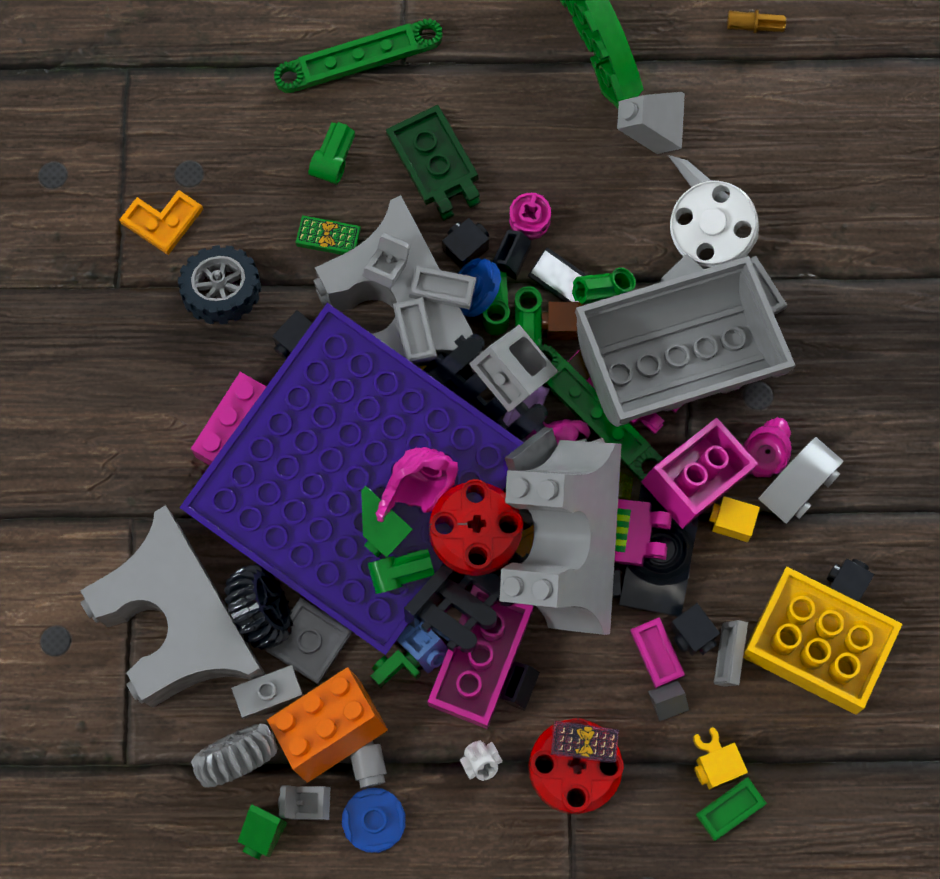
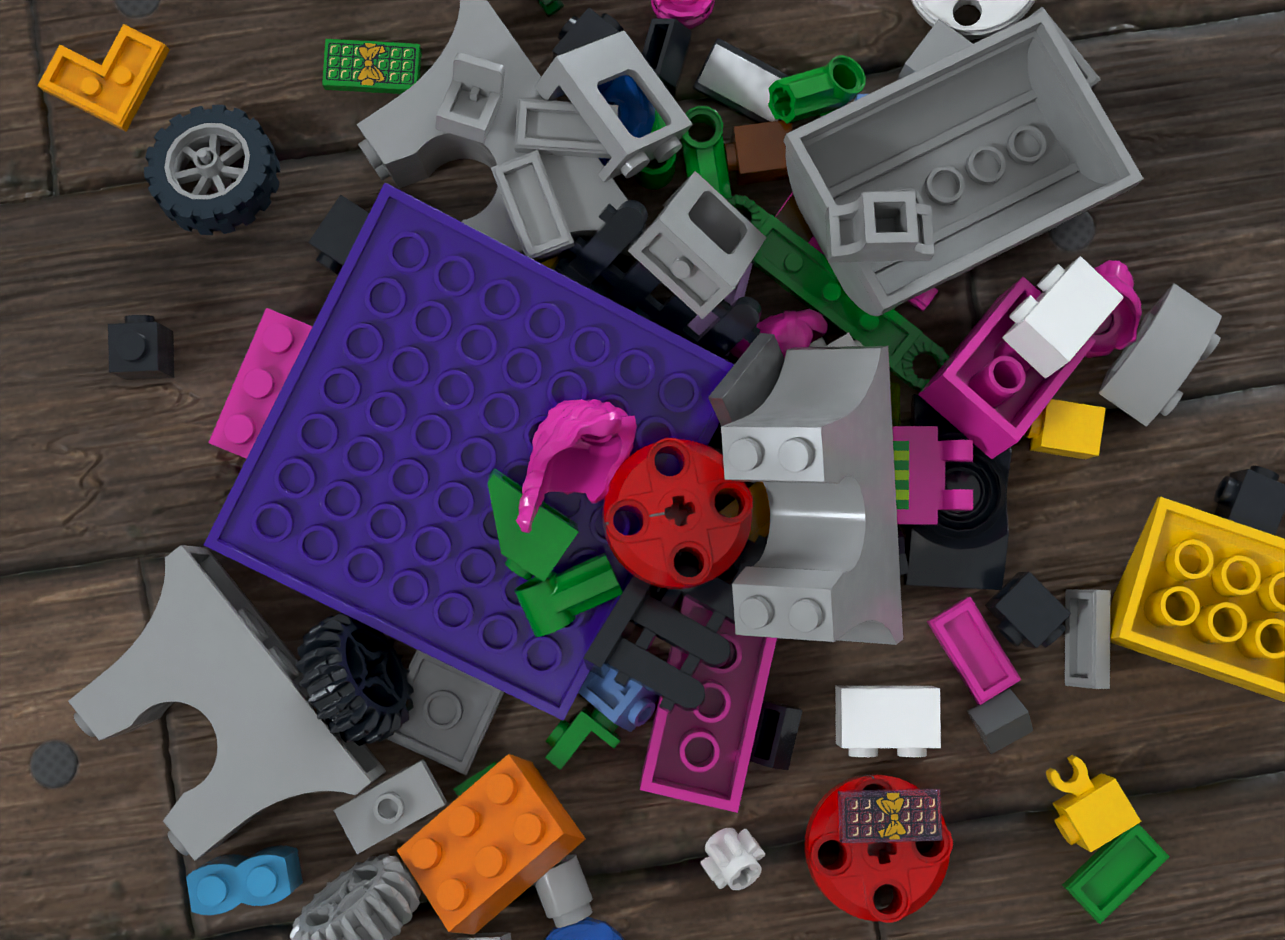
camera: 15 degrees left, 10 degrees up
(156, 387) = (140, 349): none -> black brick
(156, 729) = (239, 879): none -> dark azure brick
(460, 252) = (596, 63): none -> light grey window
(594, 686) = (888, 719): none -> white brick
(623, 370) = (880, 229): none -> light grey brick
(735, 443) = (1062, 316): none -> white brick

